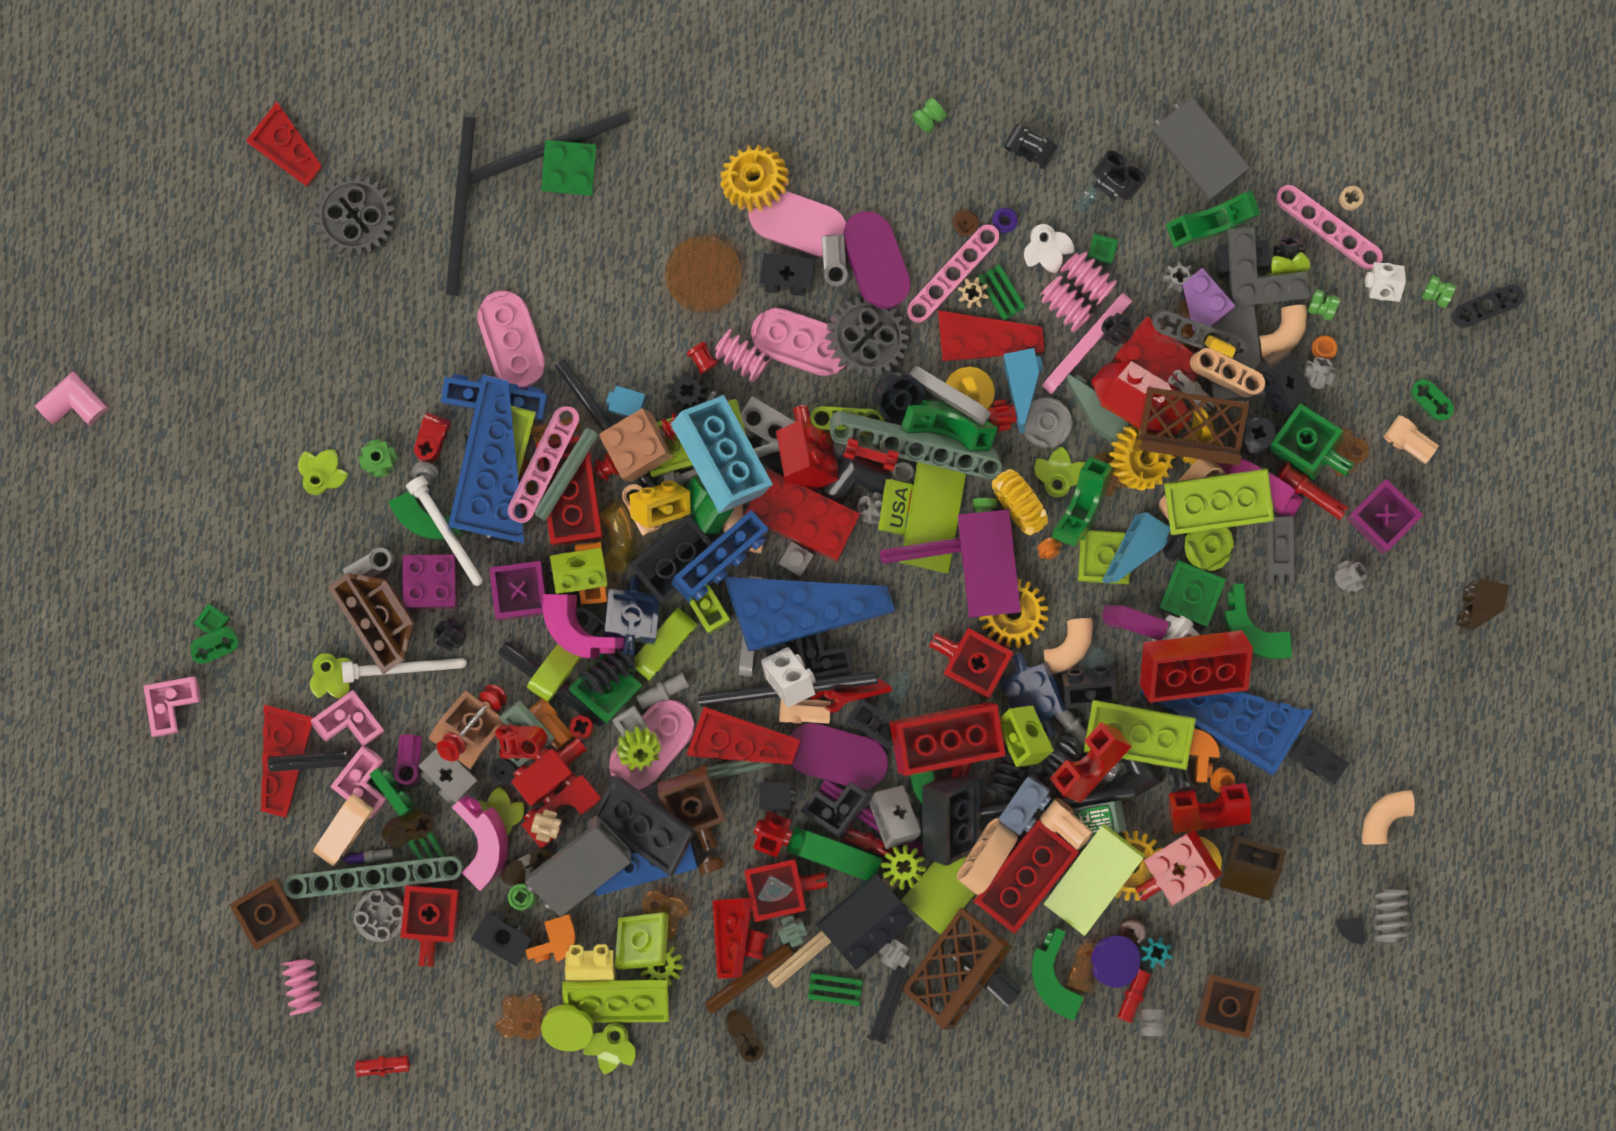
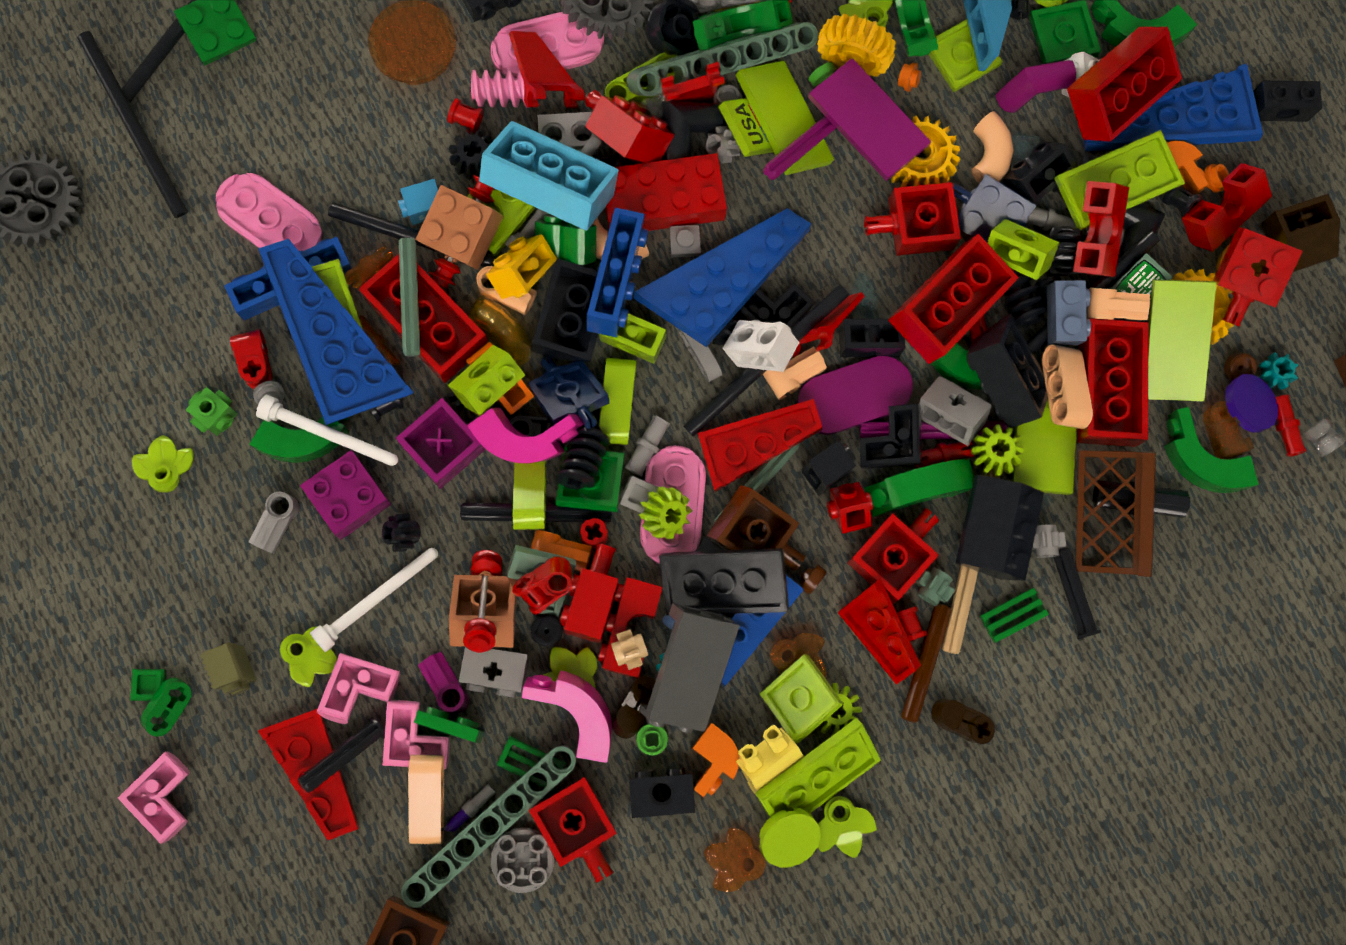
camera: 45 degrees left, 5 degrees down
(272, 650) = (228, 668): none -> olive brick
(376, 617) = (313, 563): reddish brown wedge -> none
(410, 827) = (485, 757): dark brown piece -> none
(533, 473) = (375, 315): bright pink beam -> none
(774, 890) = (896, 555): clear light blue tile -> none
(779, 363) = (542, 71): none -> red flag

